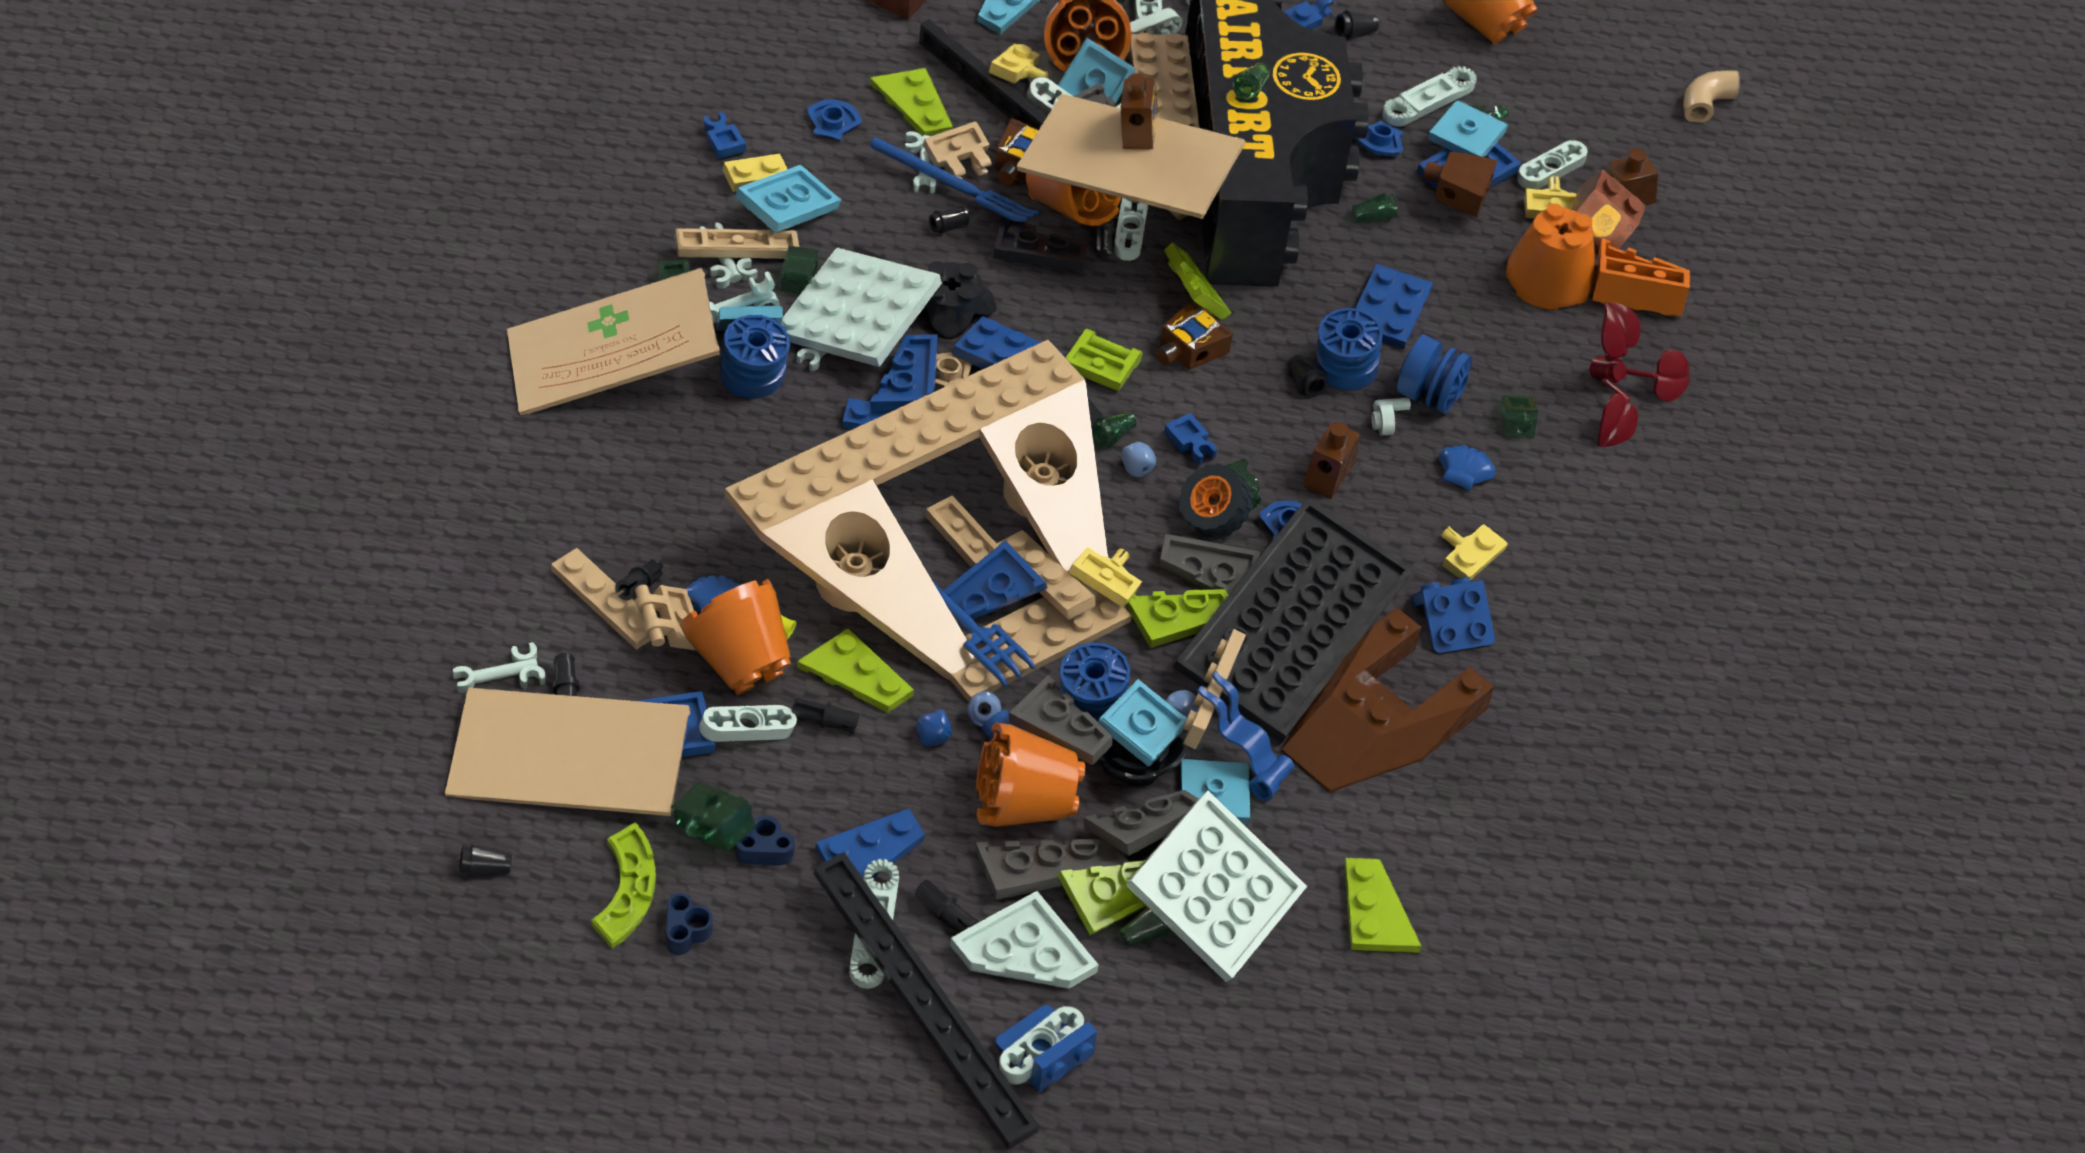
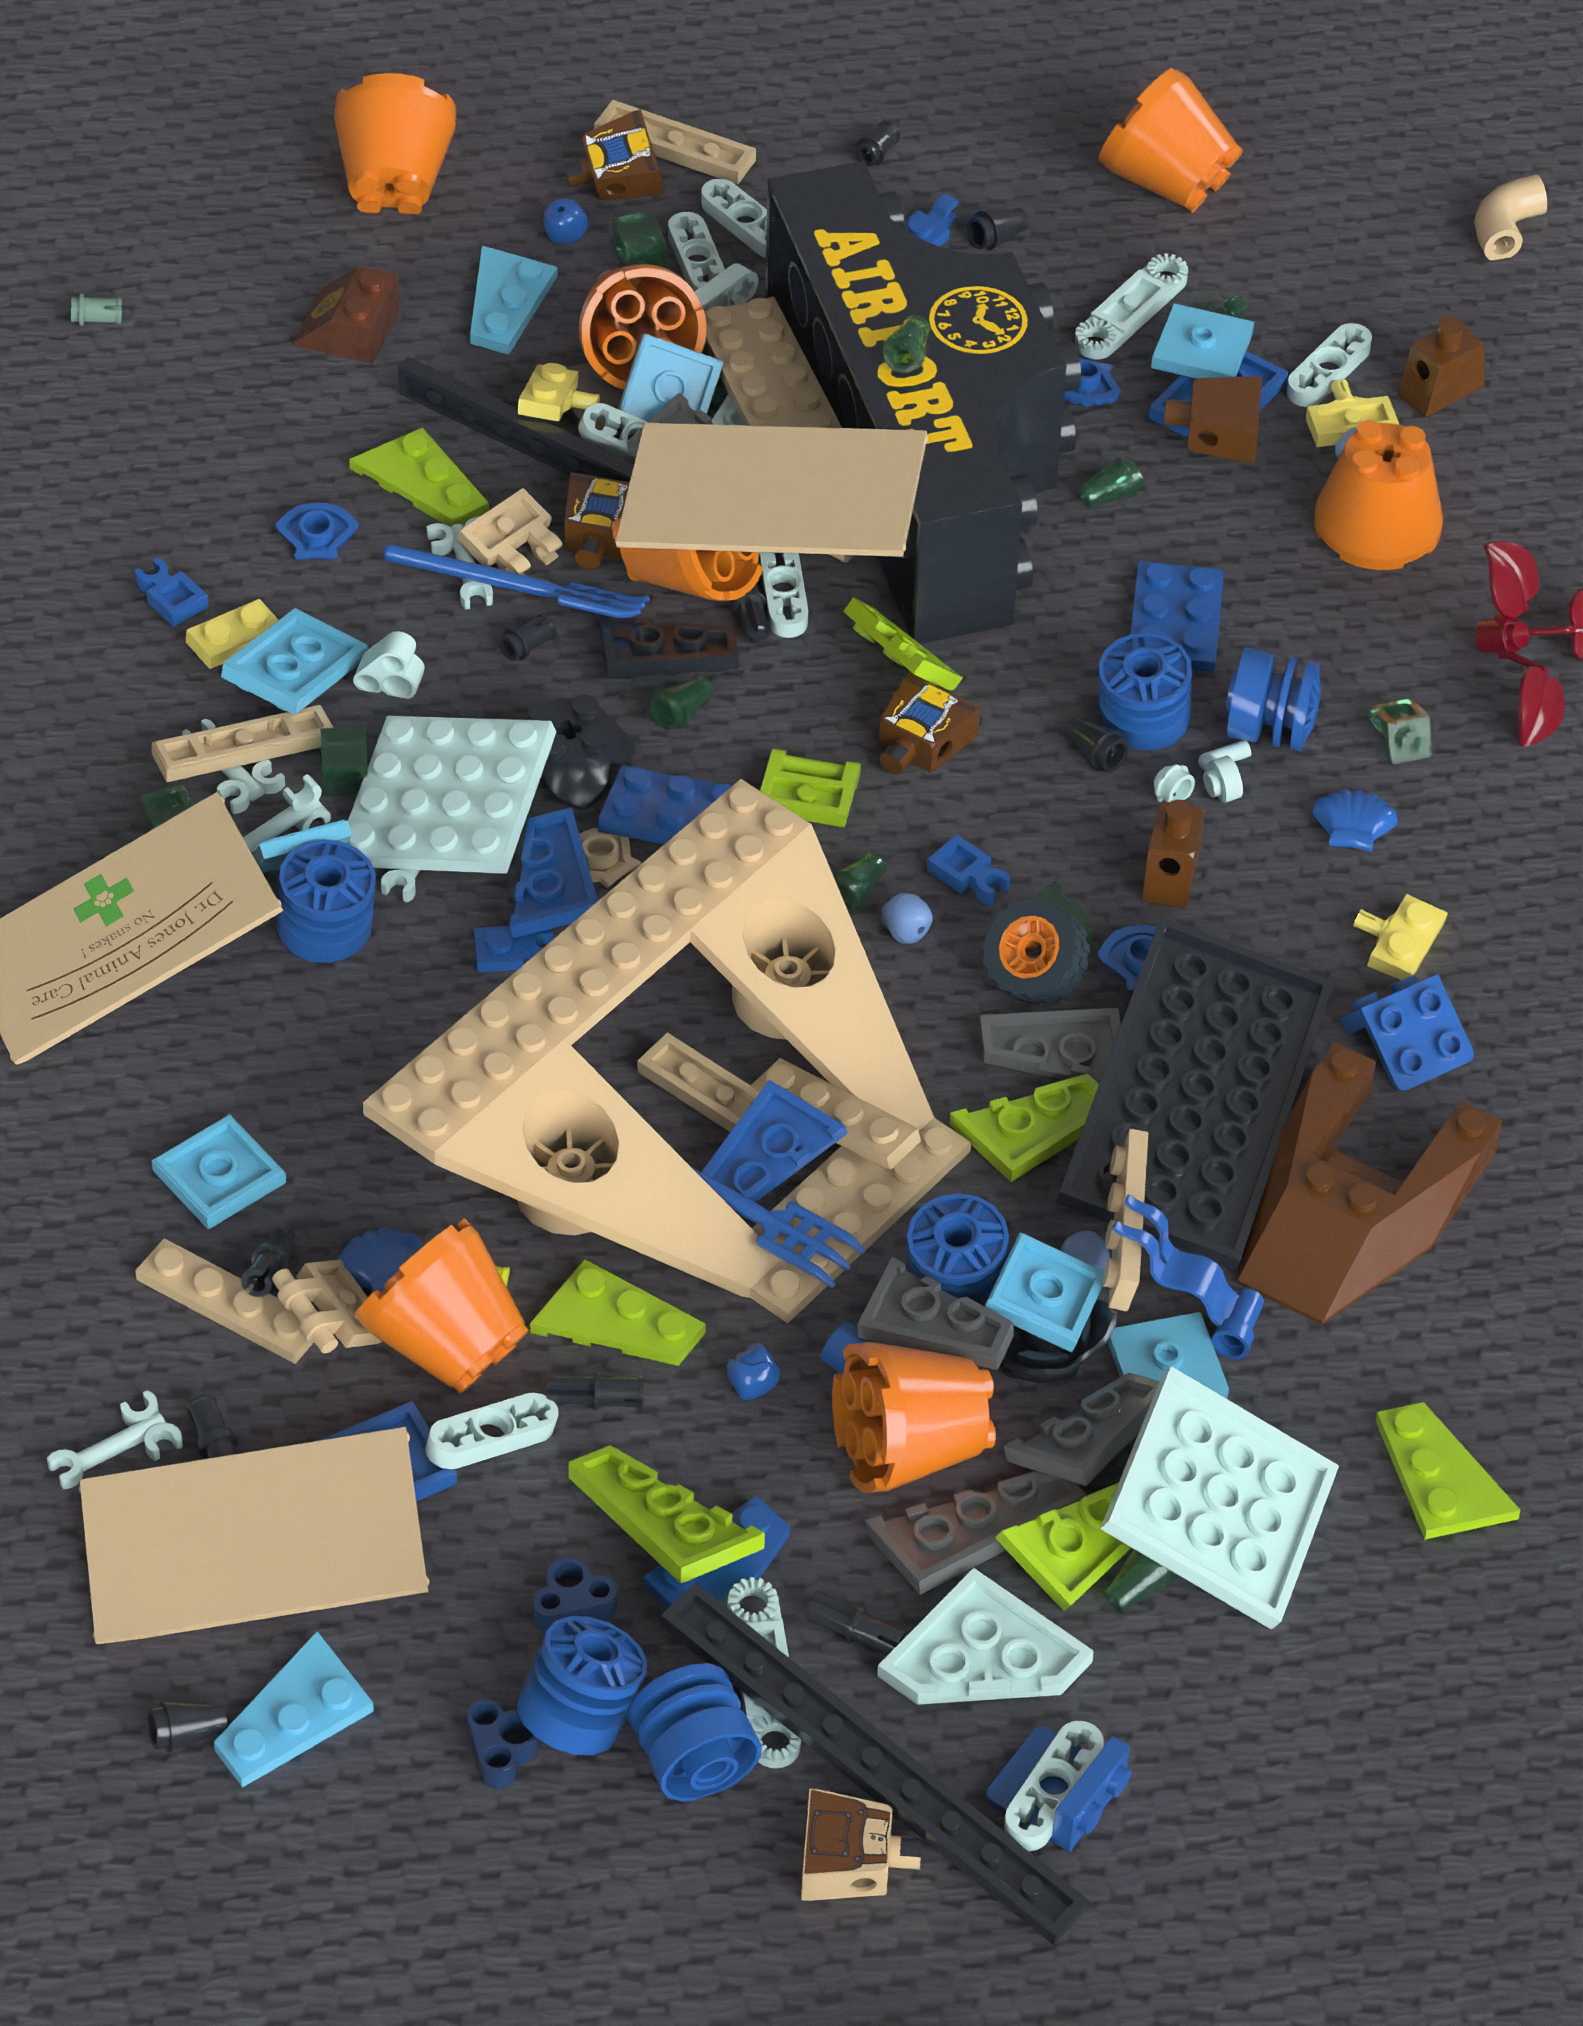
camera: 10 degrees left, 0 degrees up
(556, 872) = (293, 1713): none -> medium azure wing
(627, 514) = (219, 1171): none -> medium azure plate
(635, 886) = (410, 1707): lime tile -> none
(713, 816) = (491, 1577): clear green brick -> none
(747, 900) = (581, 1685): none -> blue wheel
(812, 949) = (694, 1732): none -> blue wheel
(840, 807) = (661, 1516): none -> lime wing
(850, 217) = (391, 667): none -> light aqua piece
(892, 1051) = (851, 1847): none -> torso
(979, 700) = (821, 1318): medium blue piece -> none
(1035, 284) = (678, 703): none -> clear green cone
(1106, 575) = (922, 1094): light yellow plate -> none
(1141, 98) = (767, 408): reddish brown torso -> none
(1350, 412) = (1171, 780): none -> light aqua plate
(1610, 207) = (1437, 405): copper slope -> none
(1639, 282) = (1504, 504): orange wedge -> none

